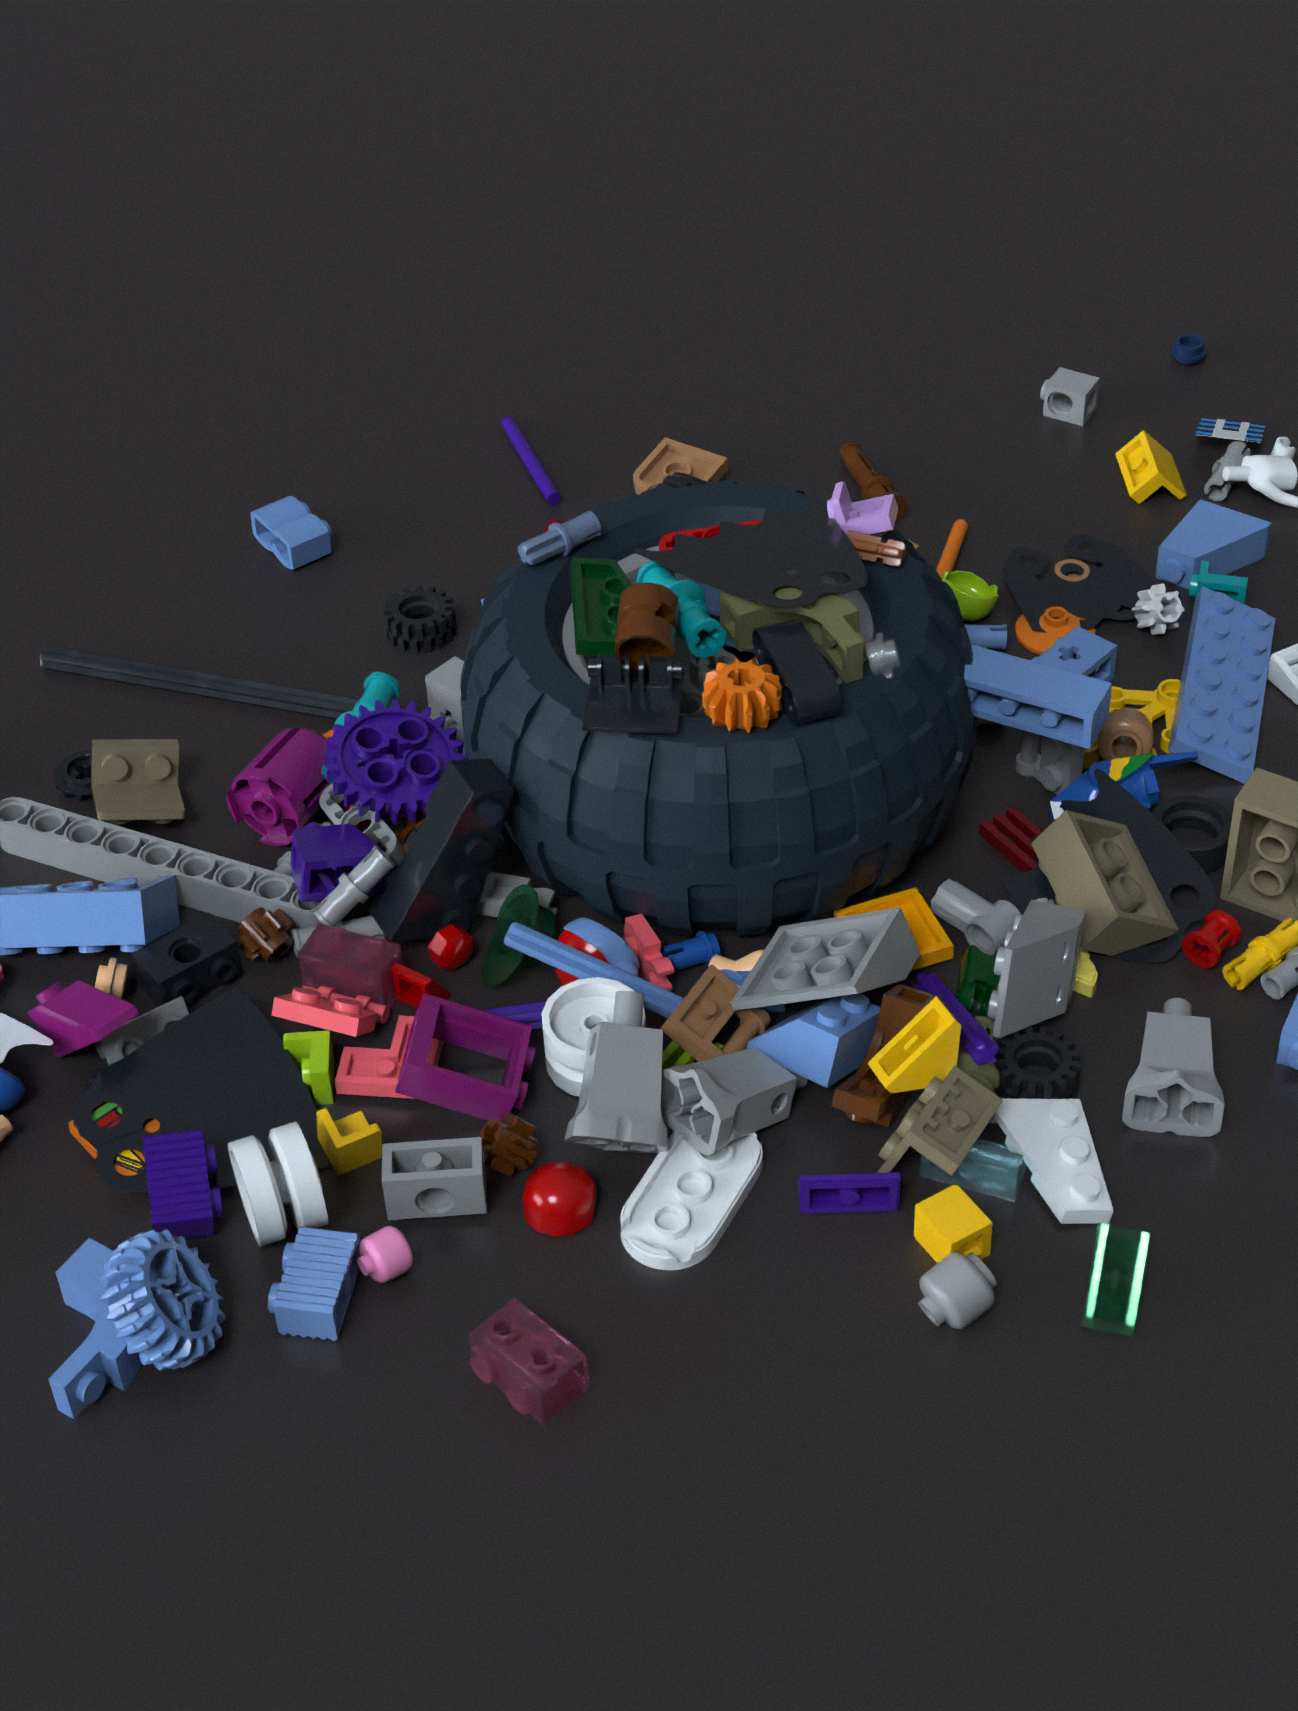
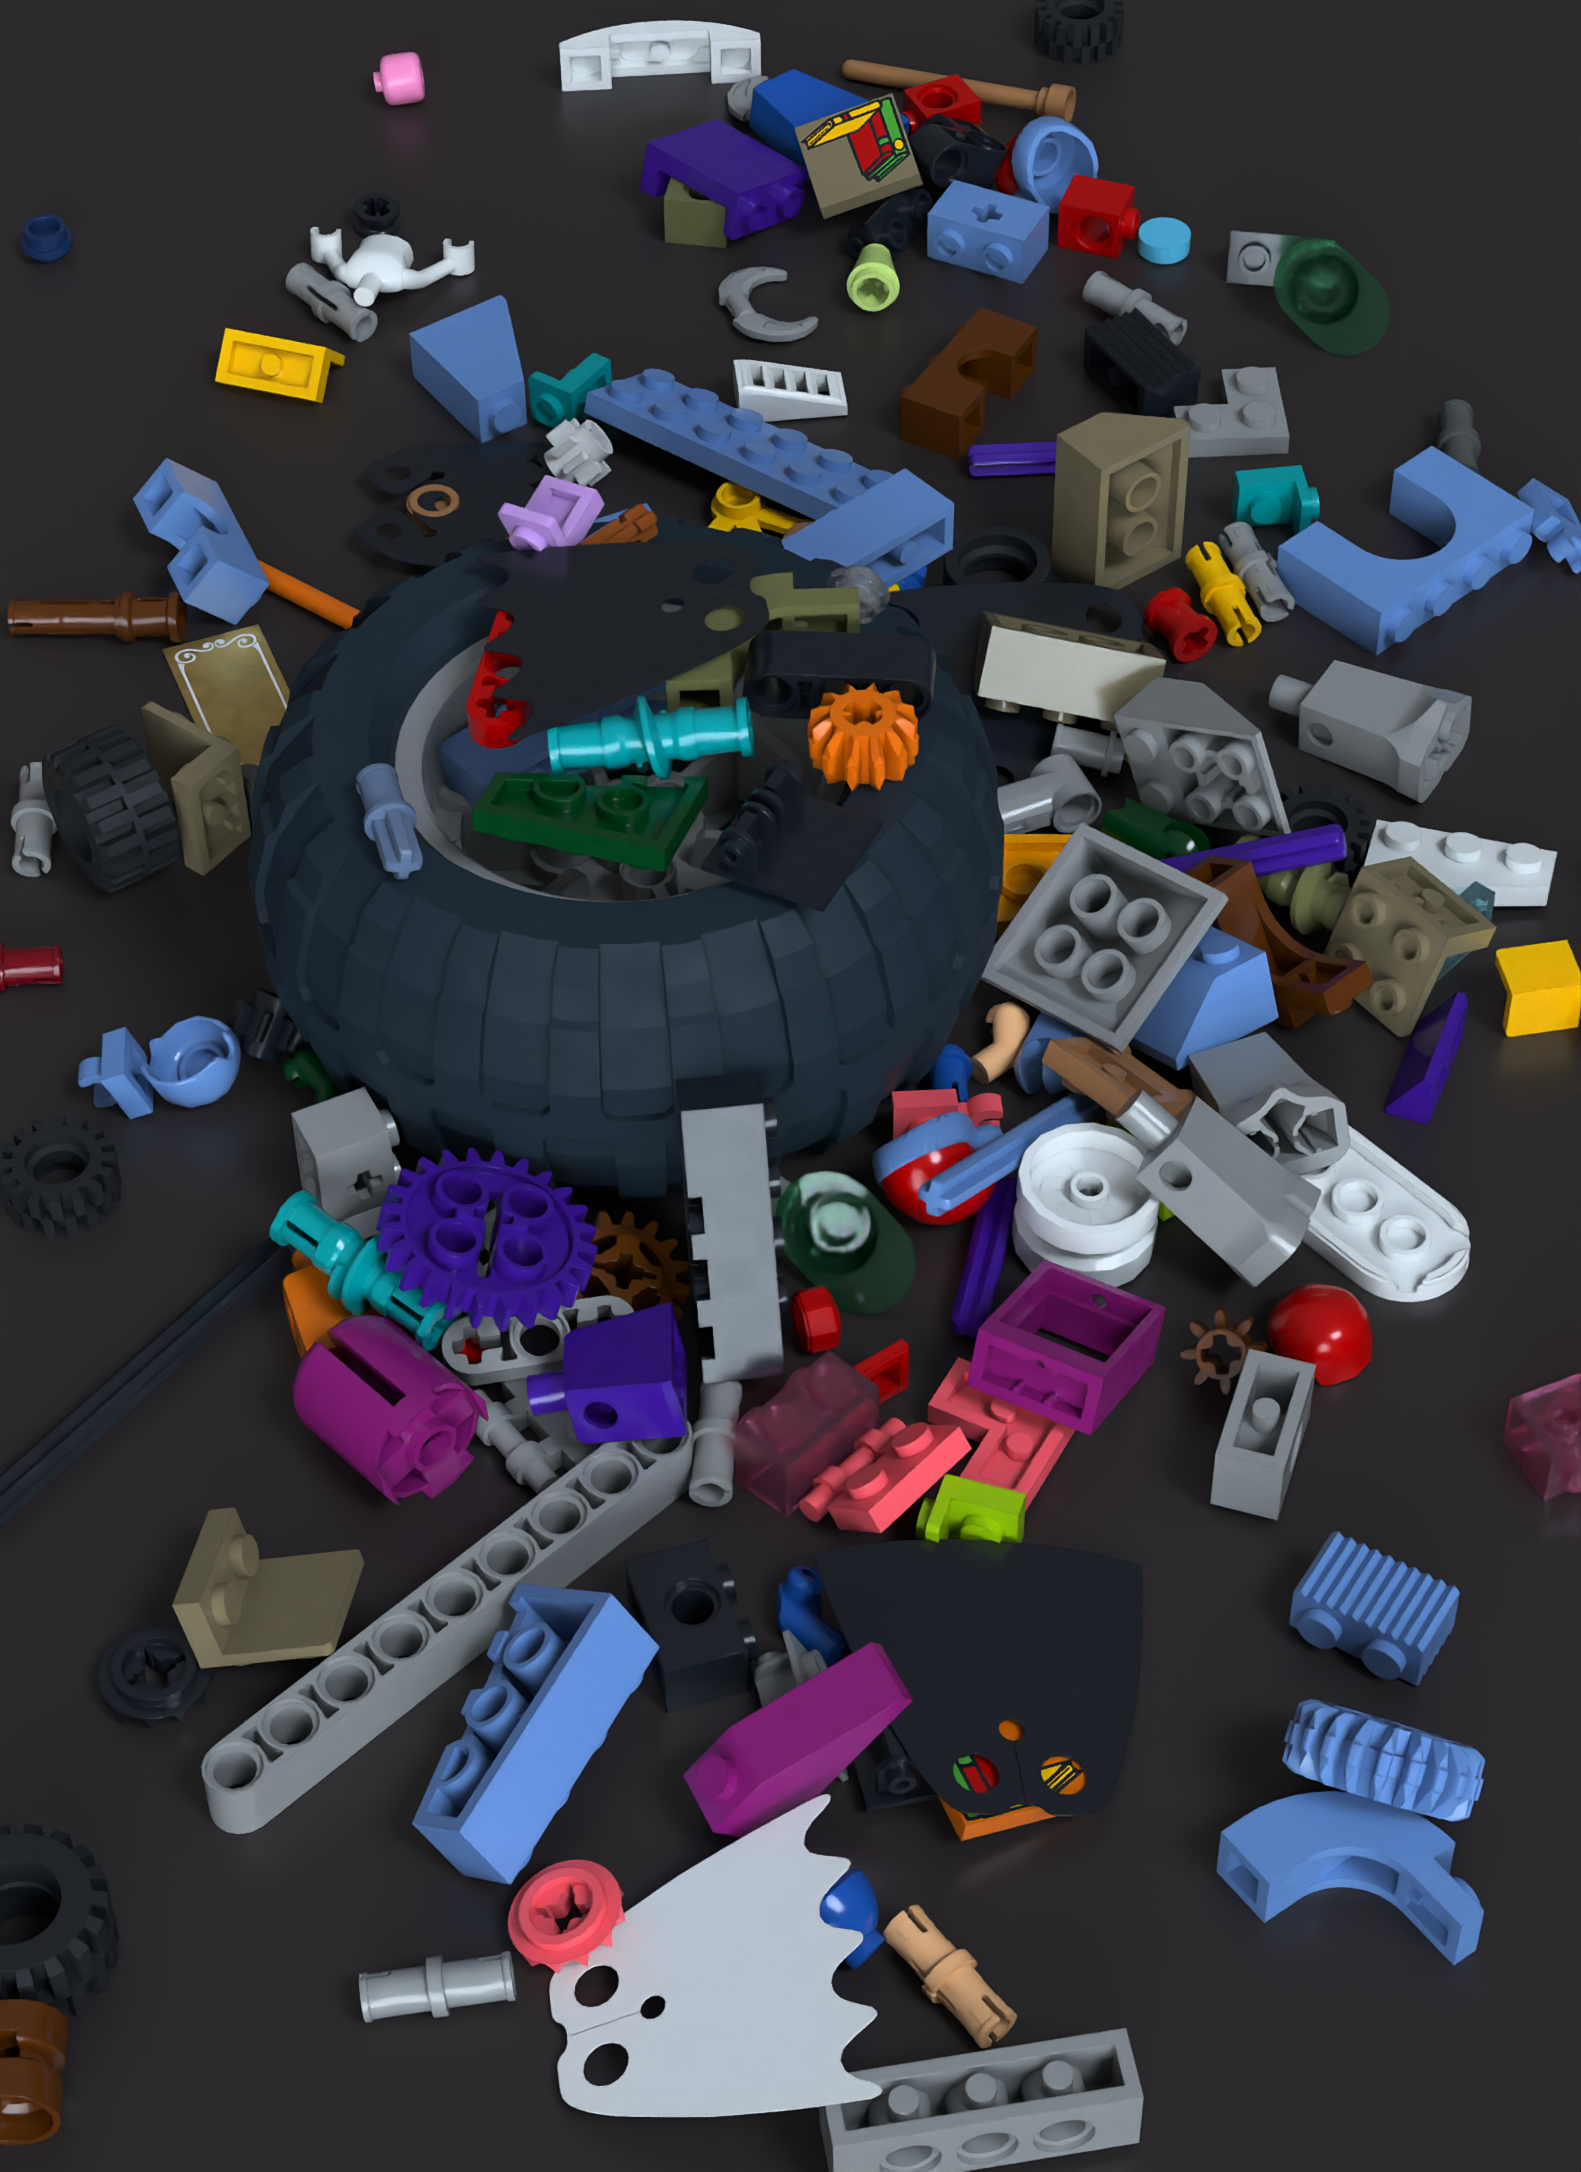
camera: 70 degrees left, 5 degrees up
(112, 978) = (670, 1726): light nougat plate -> none
(180, 1184) = (1150, 1715): dark purple brick -> none
(265, 935) = (687, 1510): reddish brown gear -> none
(285, 1181) = (1218, 1592): white wheel -> none
(348, 1141) = (1137, 1522): yellow panel -> none
(354, 887) = (706, 1361): light grey pin -> none
(385, 1254) = (1355, 1515): bright pink piece -> none
(646, 622) = (701, 762): reddish brown wheel -> none
(920, 1050) = (1303, 893): yellow slope -> none
(971, 478) = (214, 560): none -> medium blue arch
(1070, 396) = (69, 371): light grey brick -> none
(1230, 429) = (251, 267): sticker -> none

